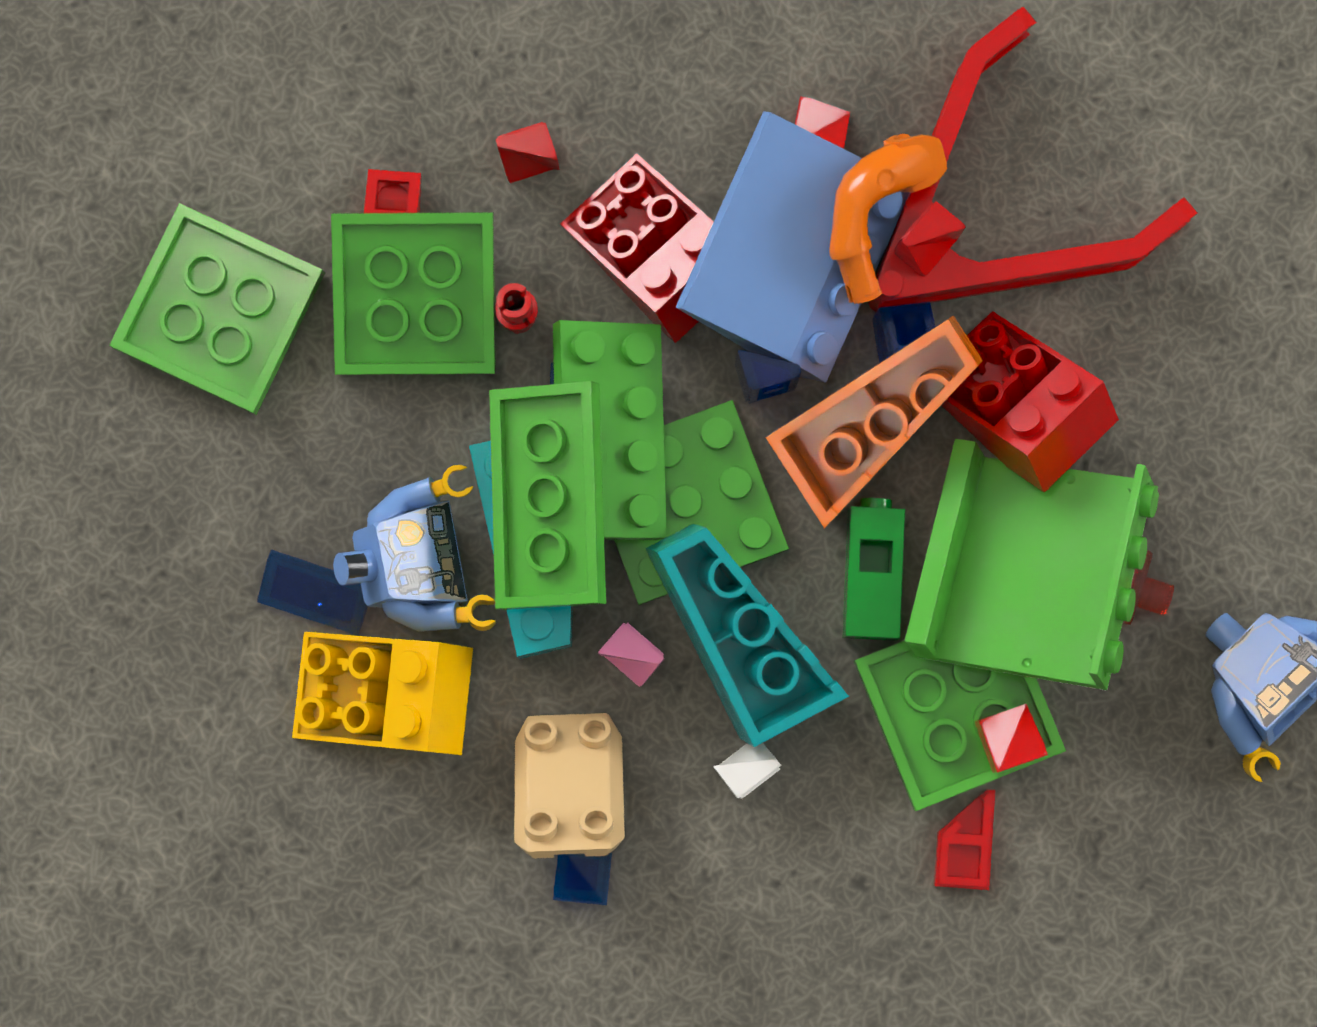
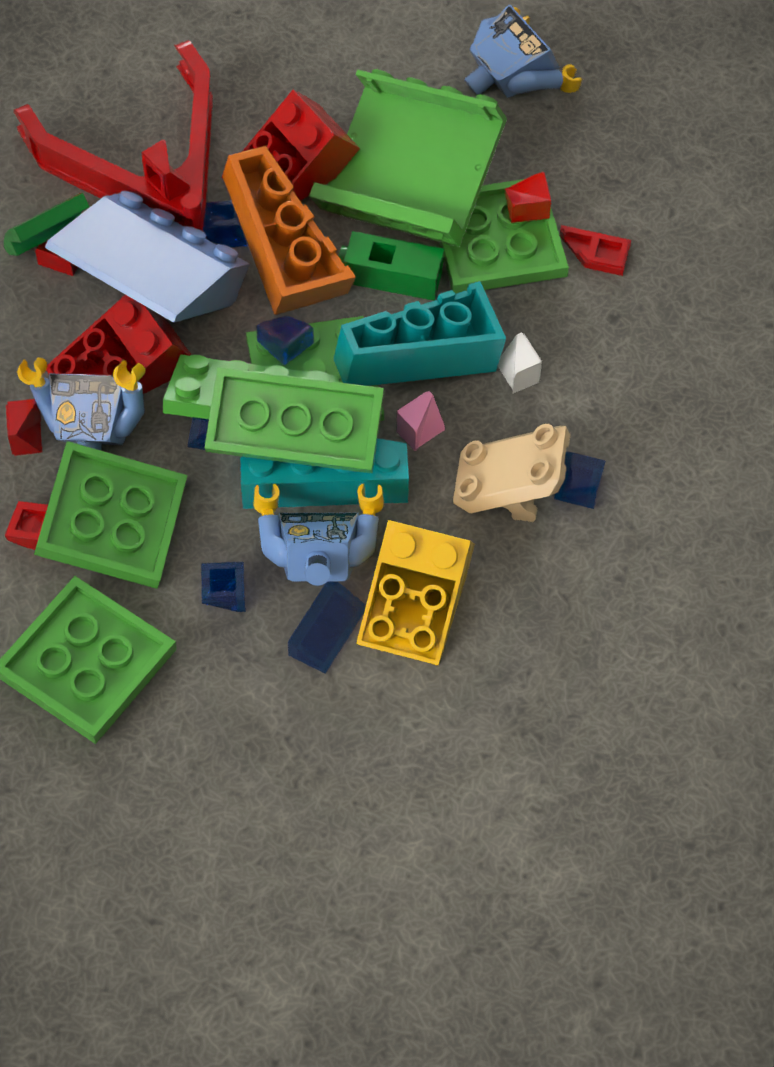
camera: 80 degrees left, 25 degrees down
(344, 453) = (224, 585): none -> clear blue slope
(519, 299) = (143, 438): red pin -> none
(557, 223) = (87, 407): none -> torso
(717, 453) = (285, 337): none -> clear blue slope
(765, 376) = (233, 298): clear blue slope -> none
(831, 100) = (44, 225): none -> green slope
(899, 165) = (112, 184): orange piece -> none

